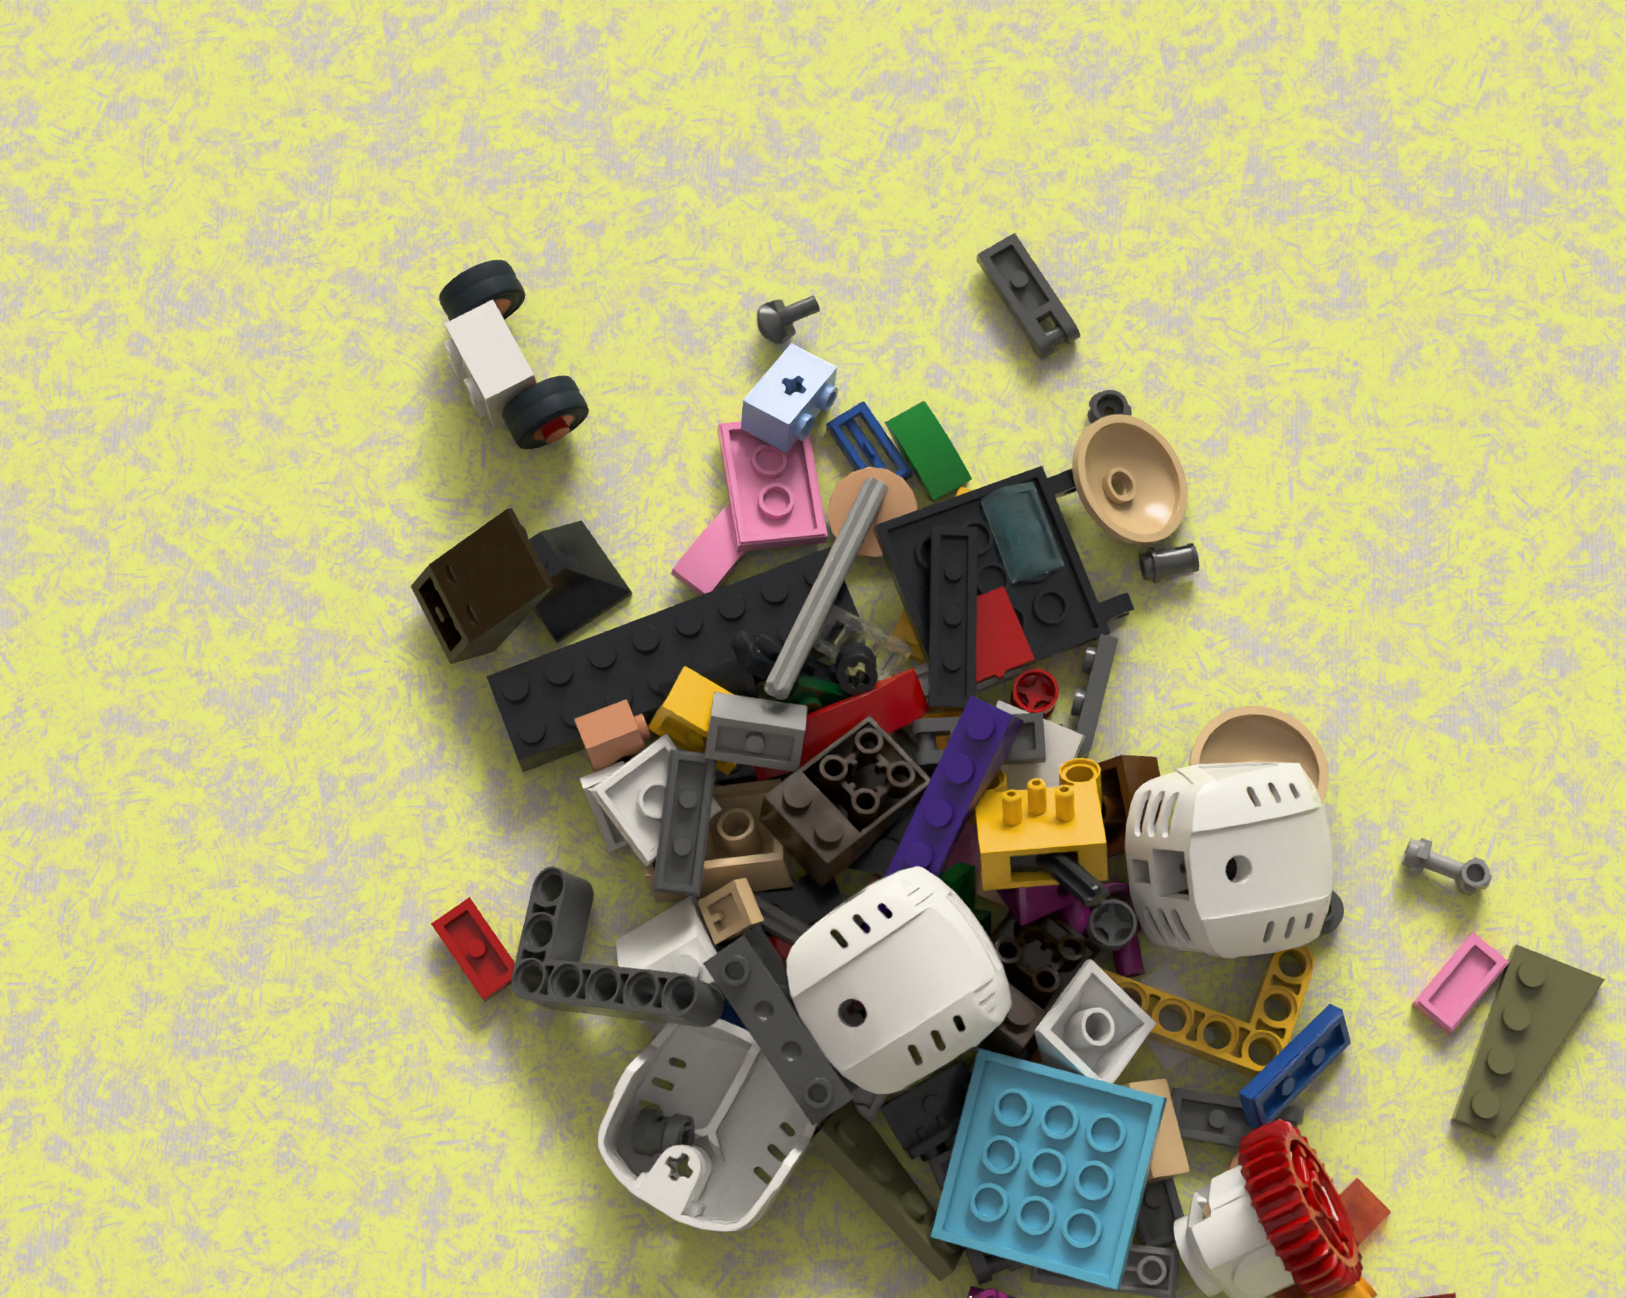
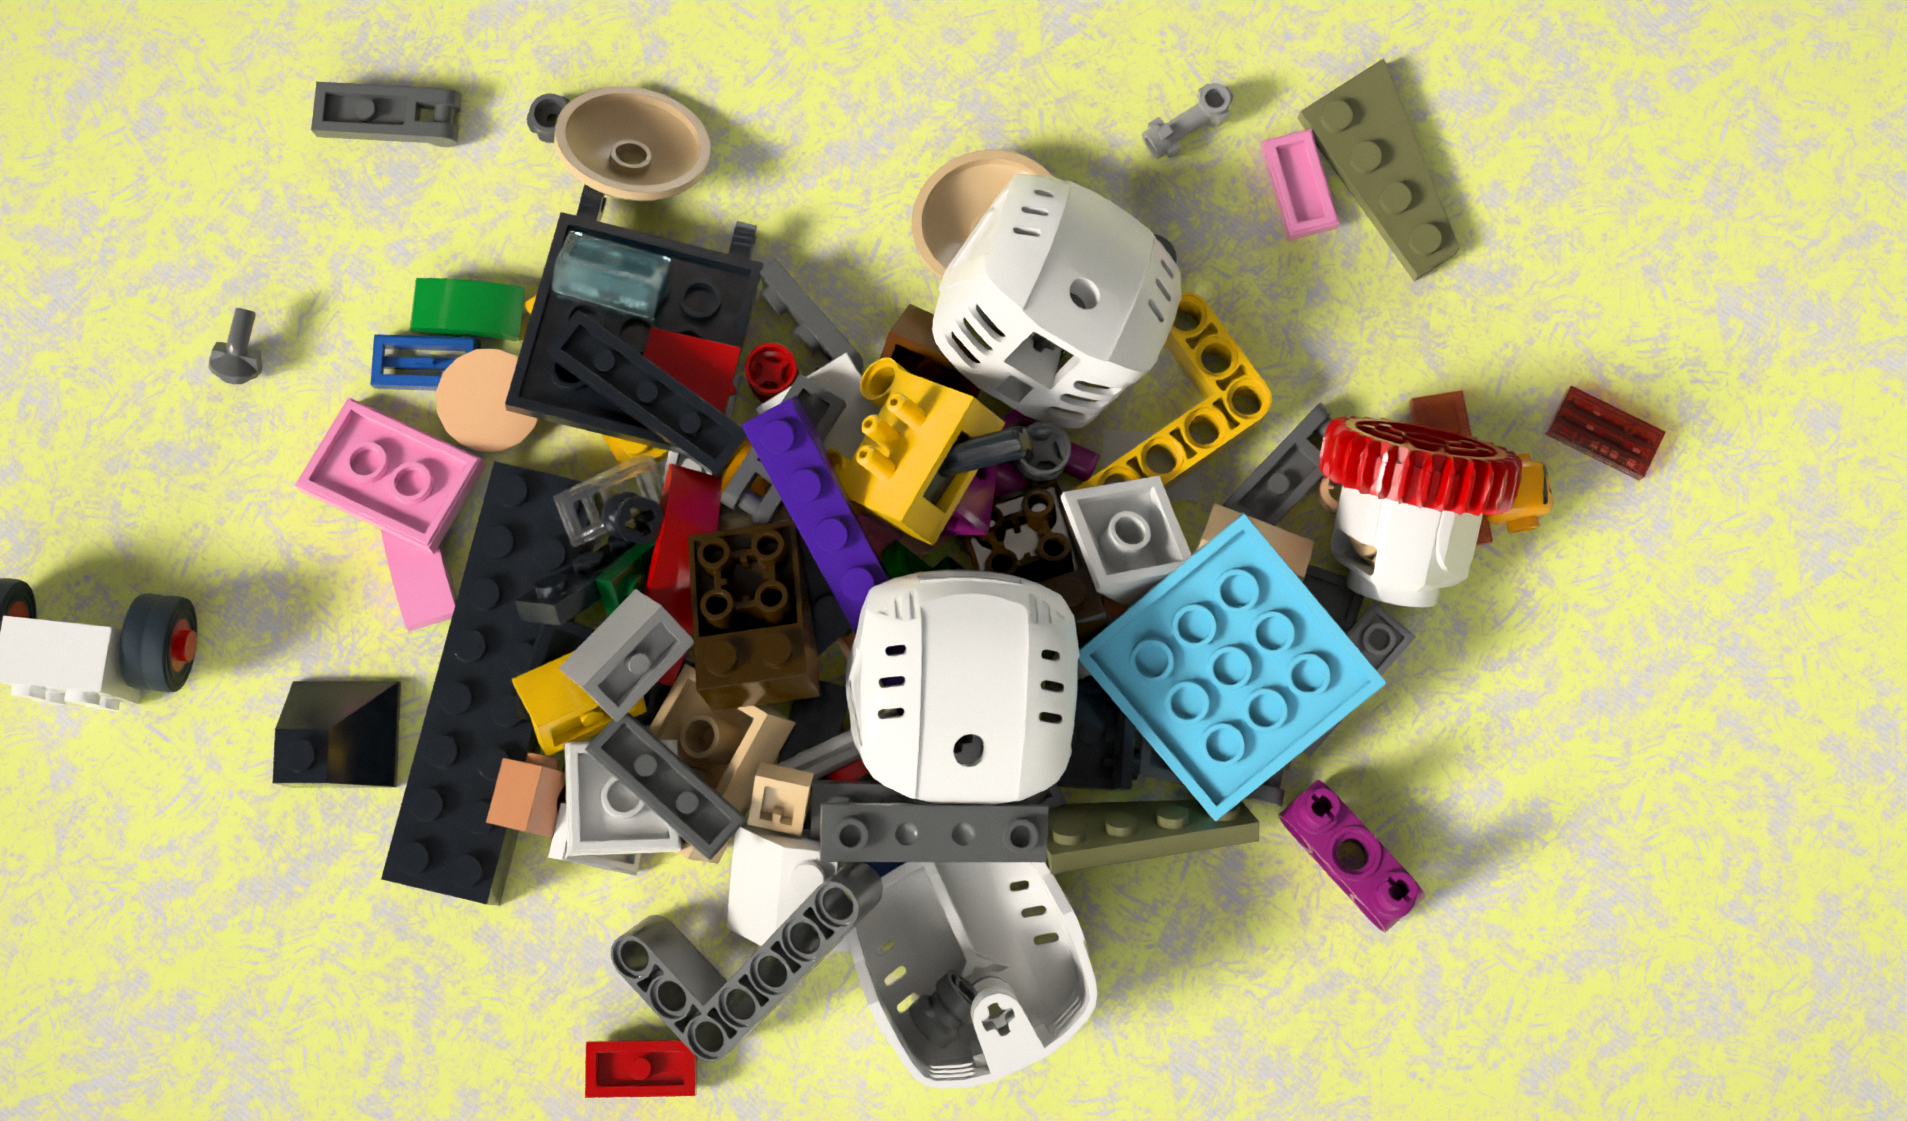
camera: 55 degrees left, 5 degrees up
(482, 588) = (289, 823): dark brown slope -> none
(789, 398) = (320, 400): brick -> none
(825, 589) = (535, 494): light grey axle -> none
(1168, 562) = (732, 169): dark grey pin -> none
(1295, 1067) = (1282, 381): blue tile -> none

